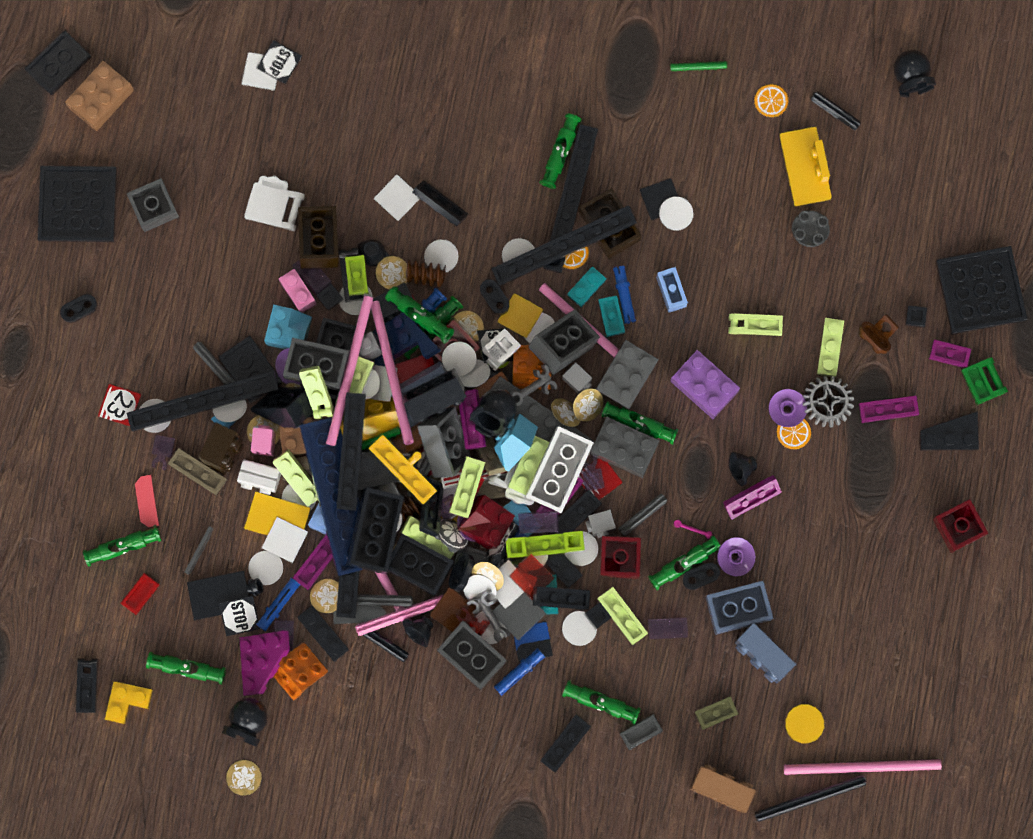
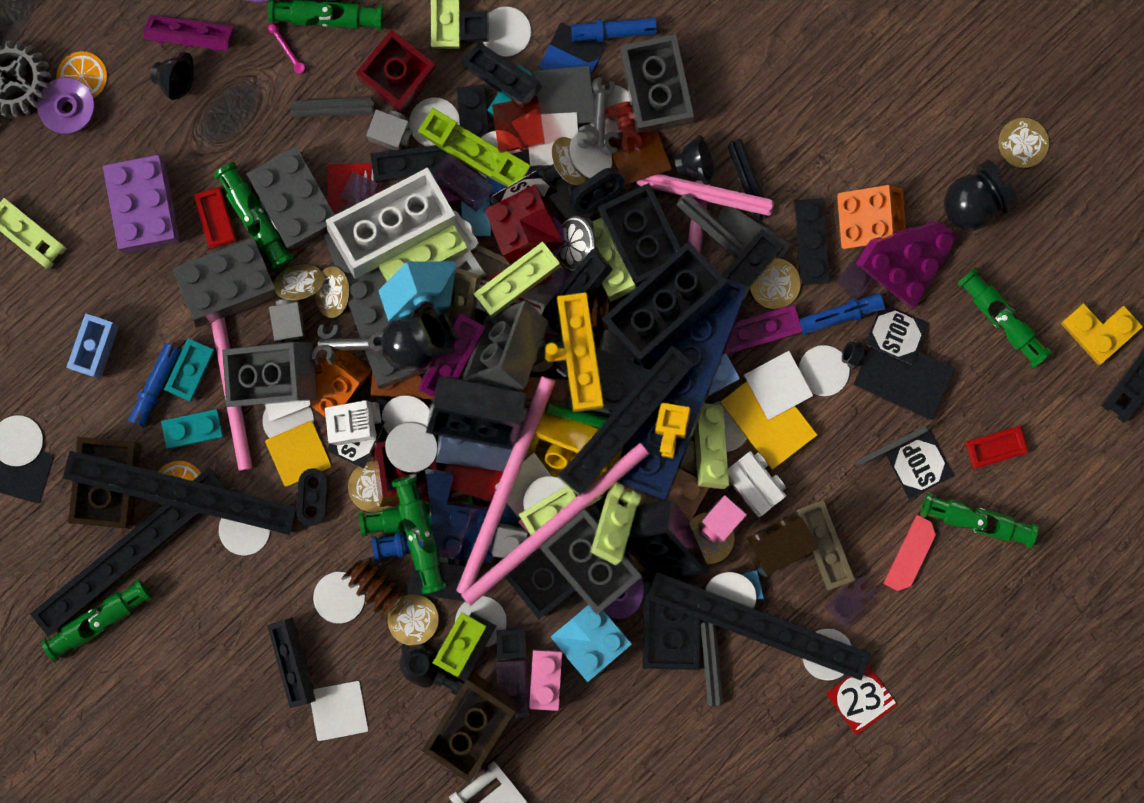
camera: 145 degrees left, 5 degrees up
(175, 554) = (919, 464): none -> sticker
(325, 467) = (671, 424): none -> yellow plate
(661, 408) = (215, 218): none -> red tile

